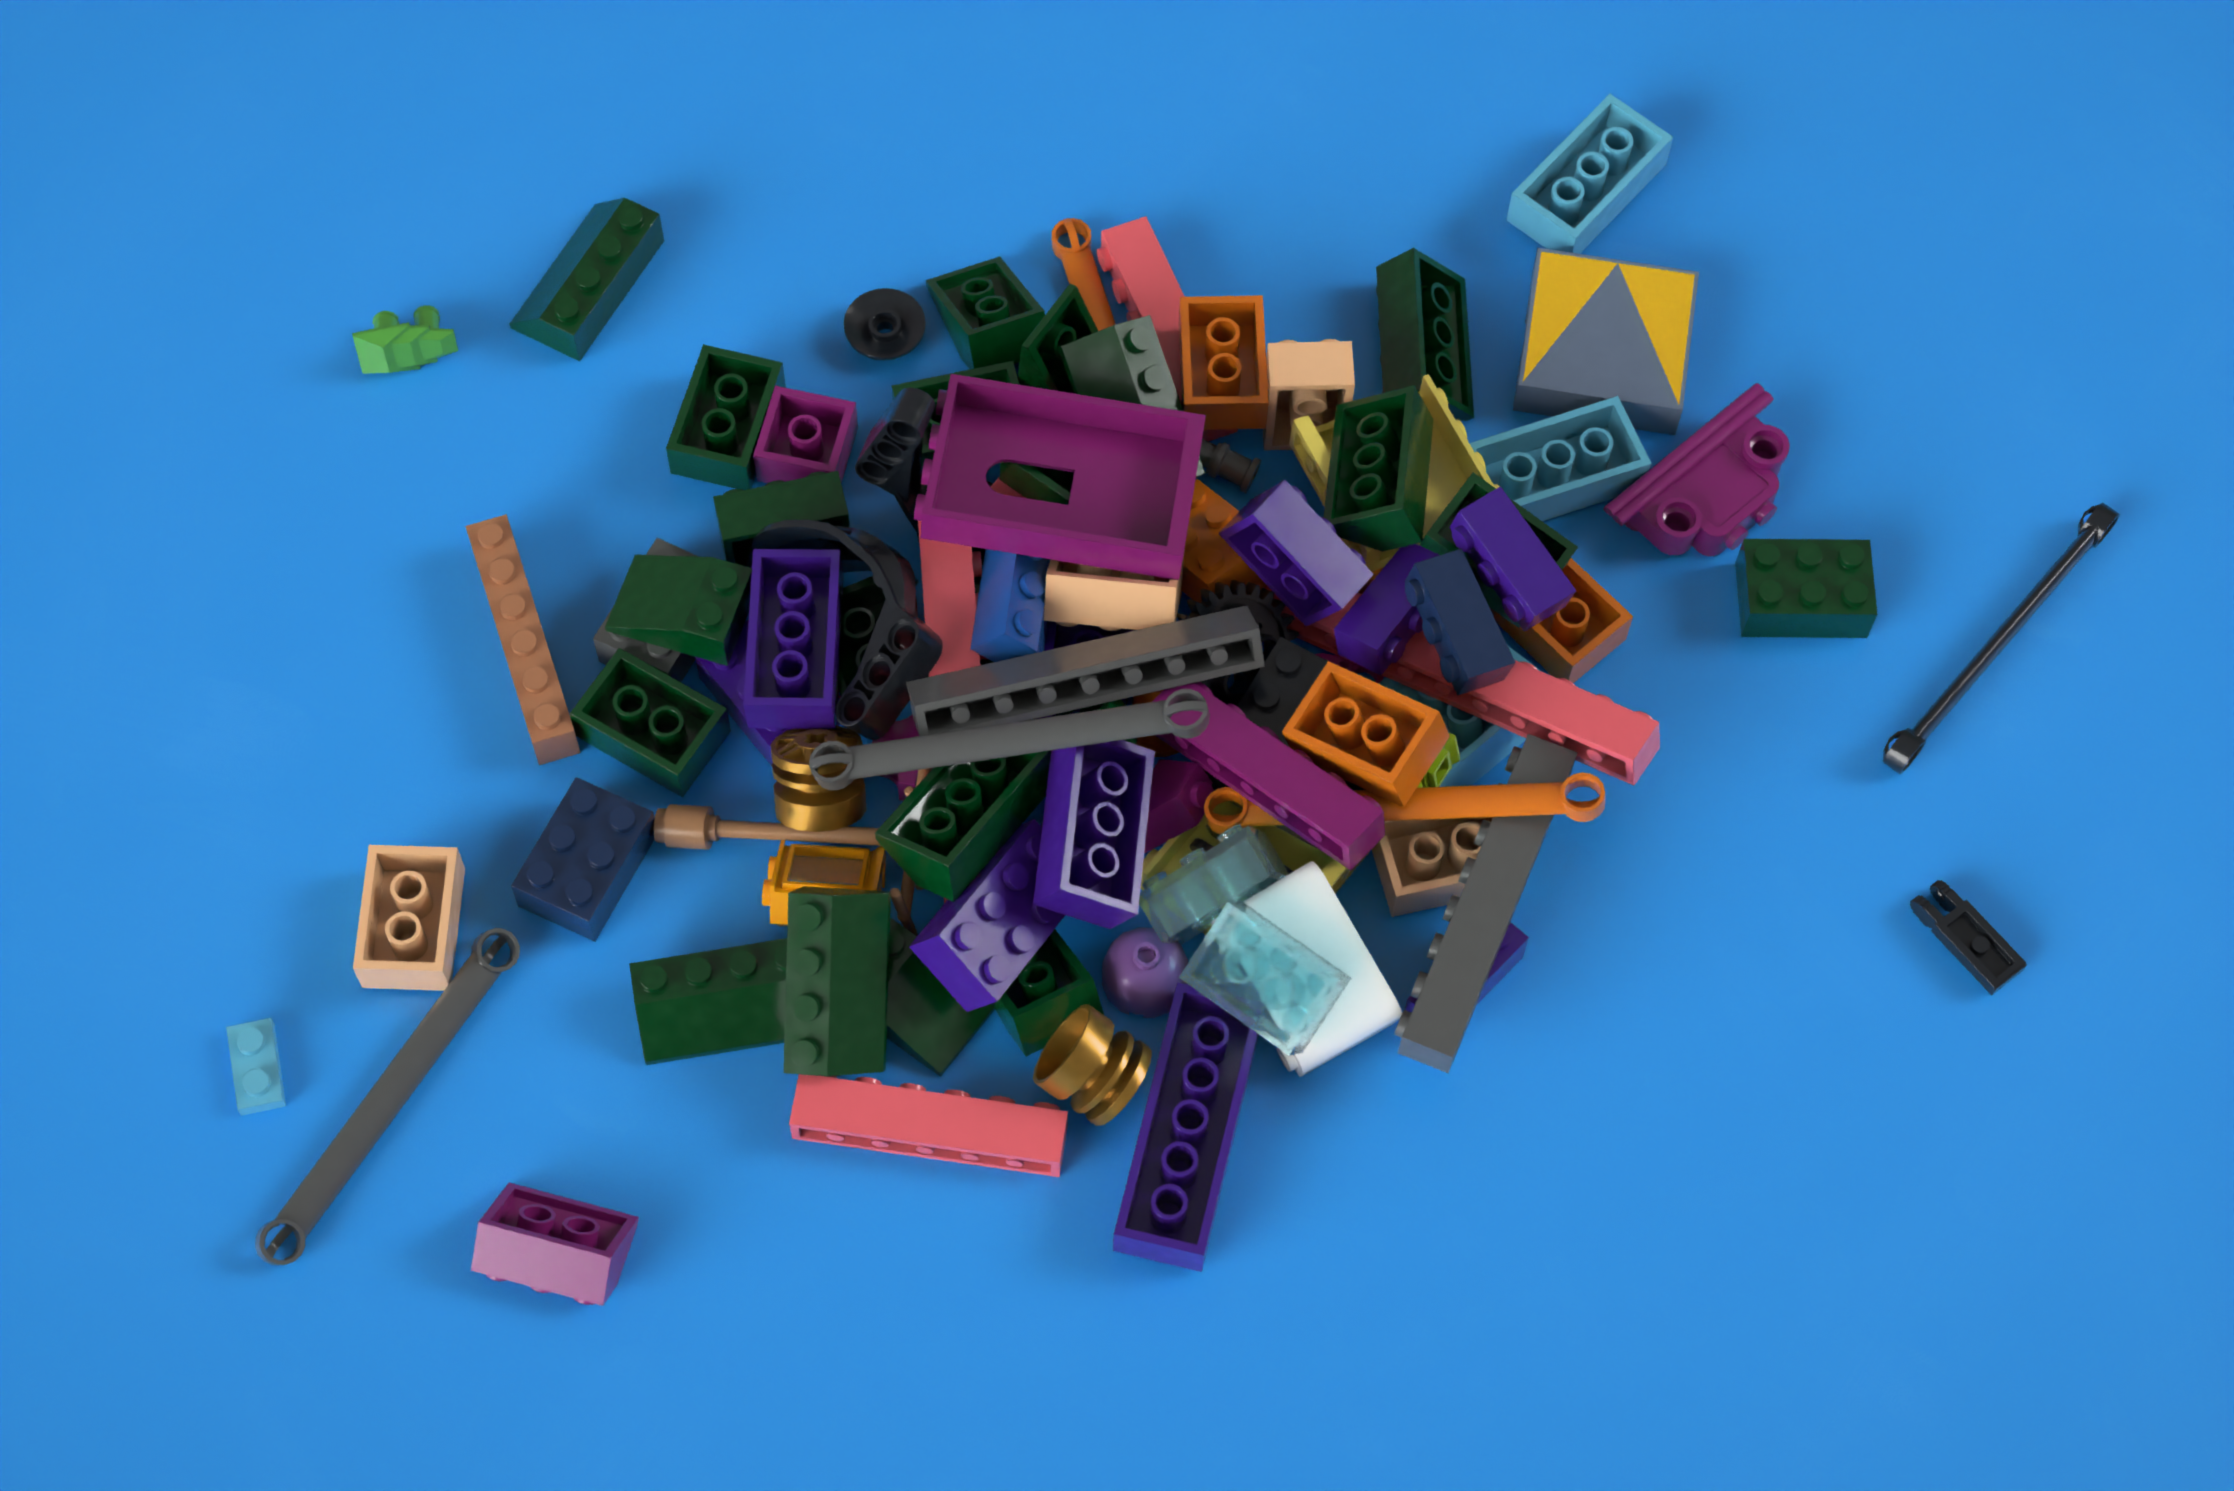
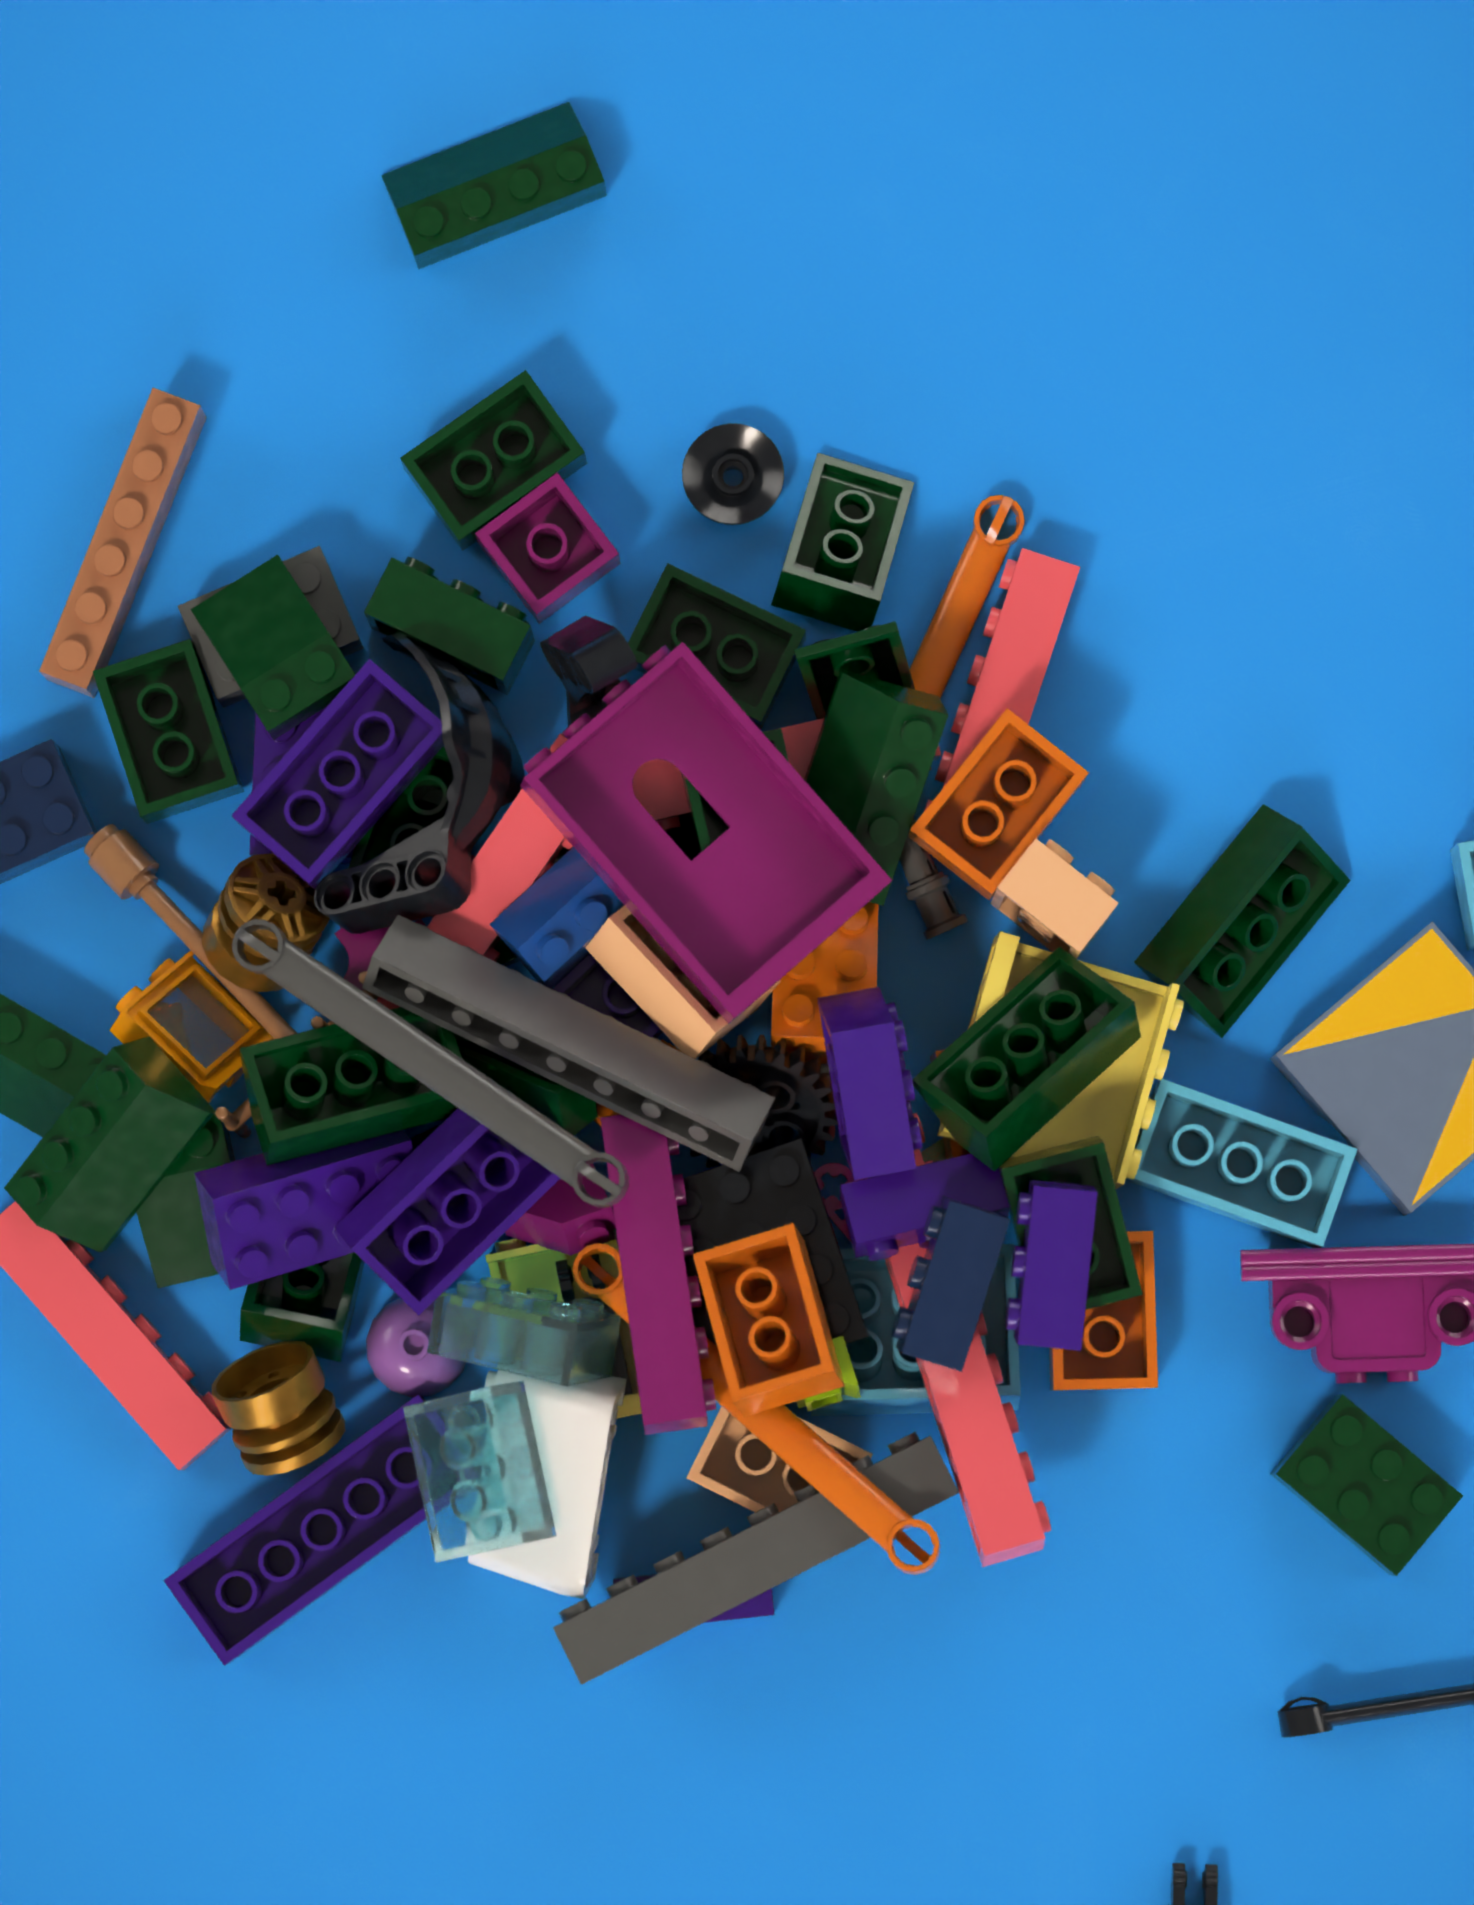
camera: 45 degrees right, 20 degrees up
(403, 346) = (243, 124): bright green connector -> none

